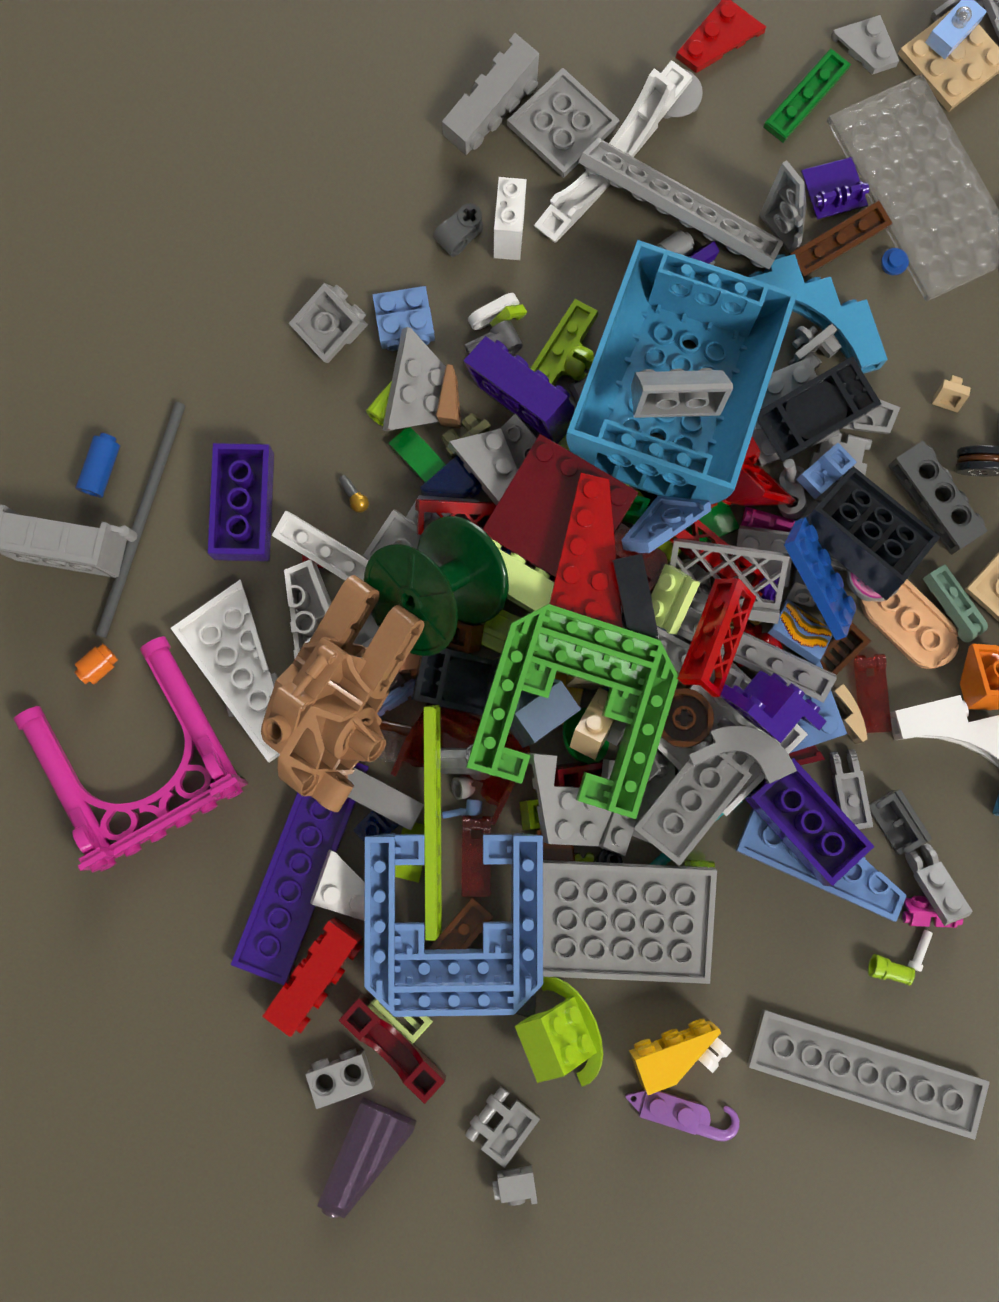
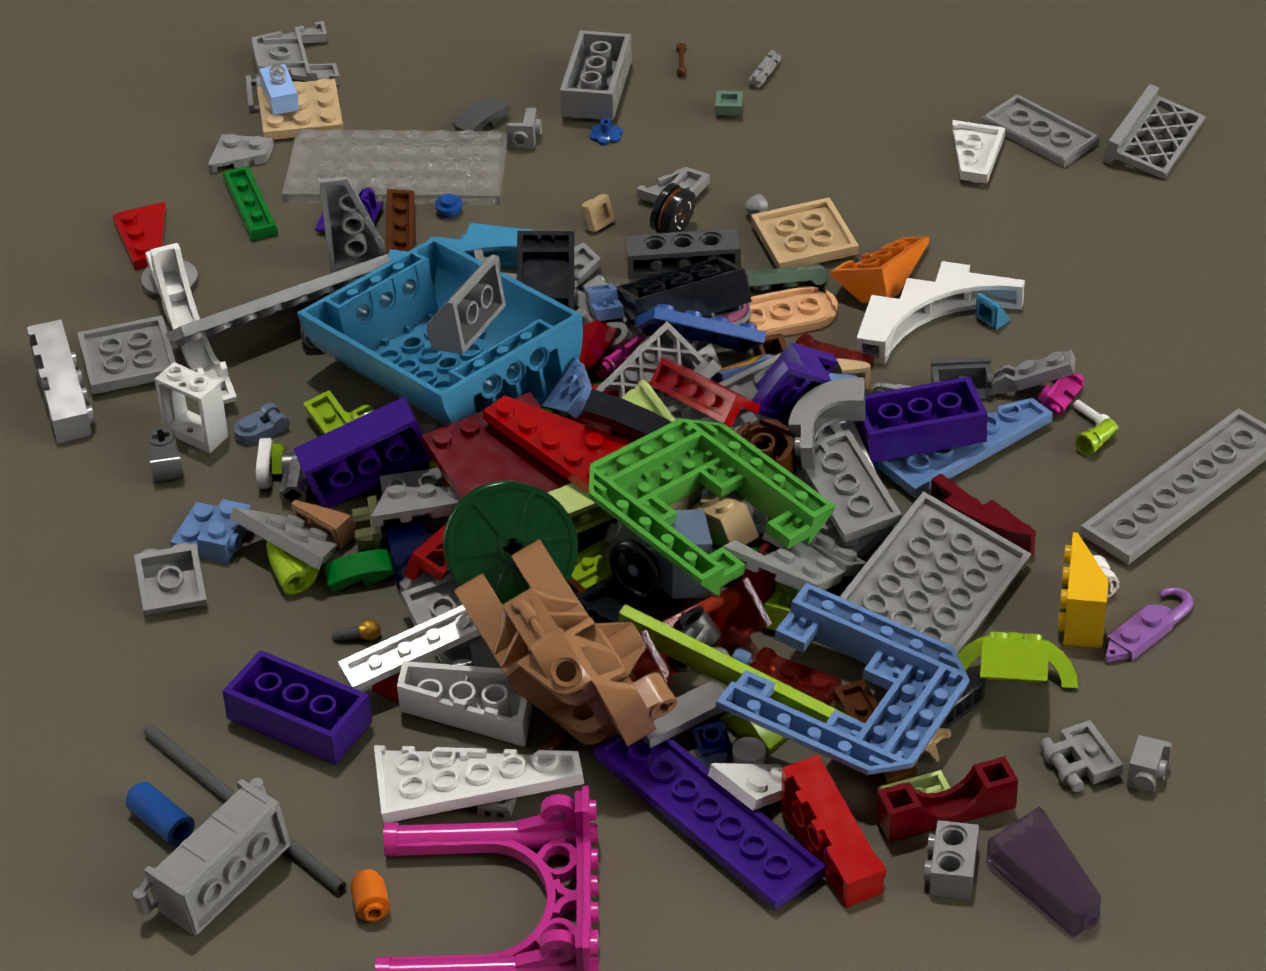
camera: 55 degrees left, 40 degrees down
(532, 272) = (260, 424): none -> sand blue plate
(728, 933) = (988, 515): none -> dark red slope

